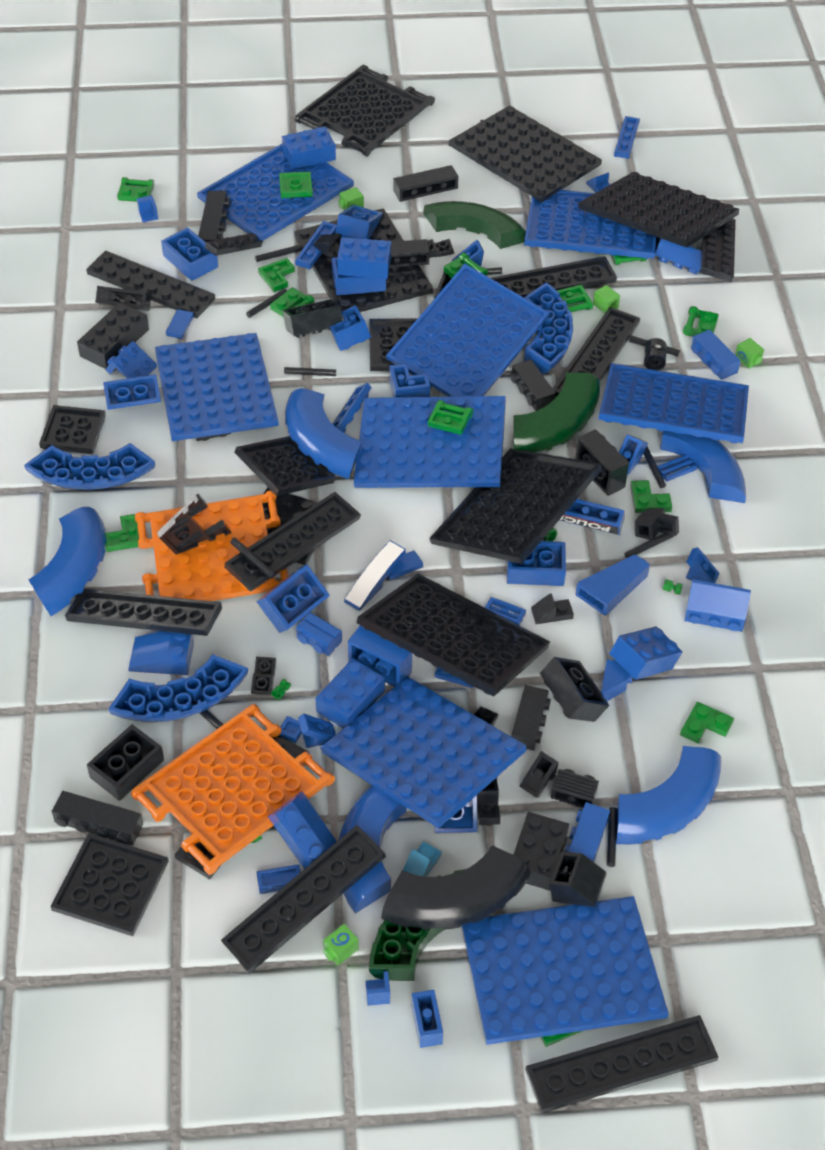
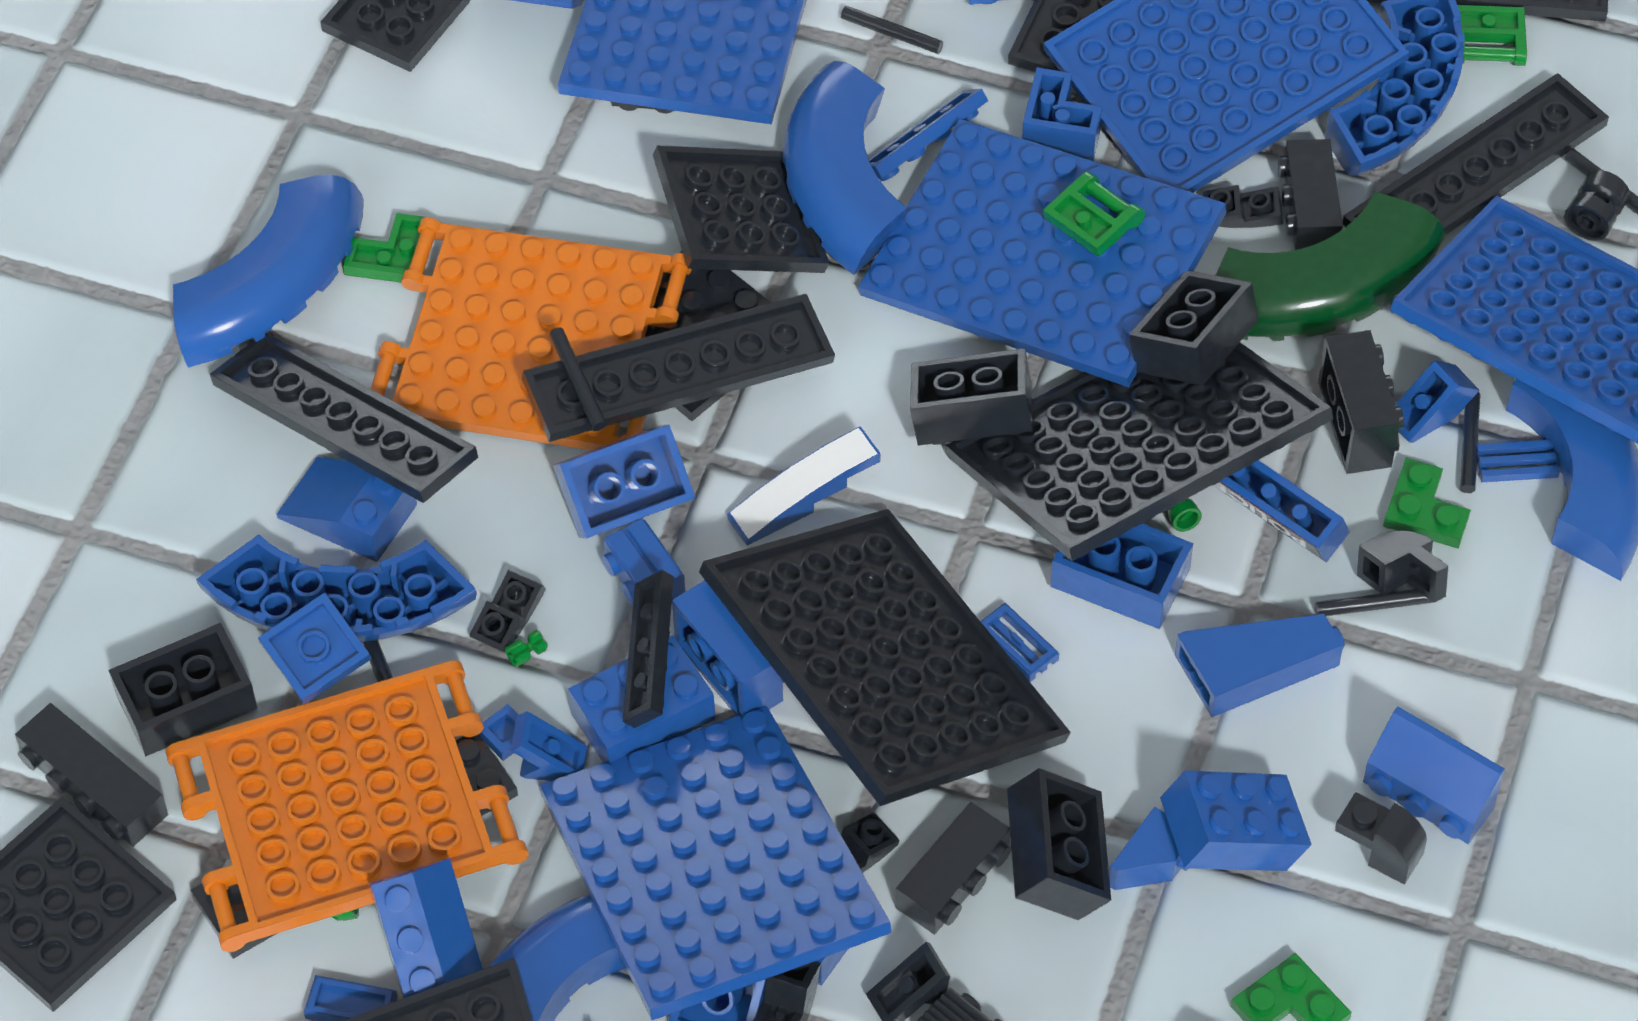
camera: 25 degrees right, 5 degrees up
(90, 471) = (384, 107): blue brick -> none
(184, 532) = (477, 289): black wing -> none
(184, 720) = (314, 648): none -> blue plate
(347, 666) = (648, 649): none -> black plate
(407, 564) = (877, 483): blue tile -> none
(433, 512) = (971, 397): none -> black brick
(513, 397) = (1249, 209): none -> black slope
(518, 451) = (1194, 327): none -> black brick
(551, 611) = (1110, 673): black slope -> none
(605, 298) = (1560, 52): bright green brick -> none
(669, 585) = (1366, 700): green piece -> none
(701, 567) = (1448, 688): blue slope -> none
(713, 637) = (1391, 834): none -> black brick

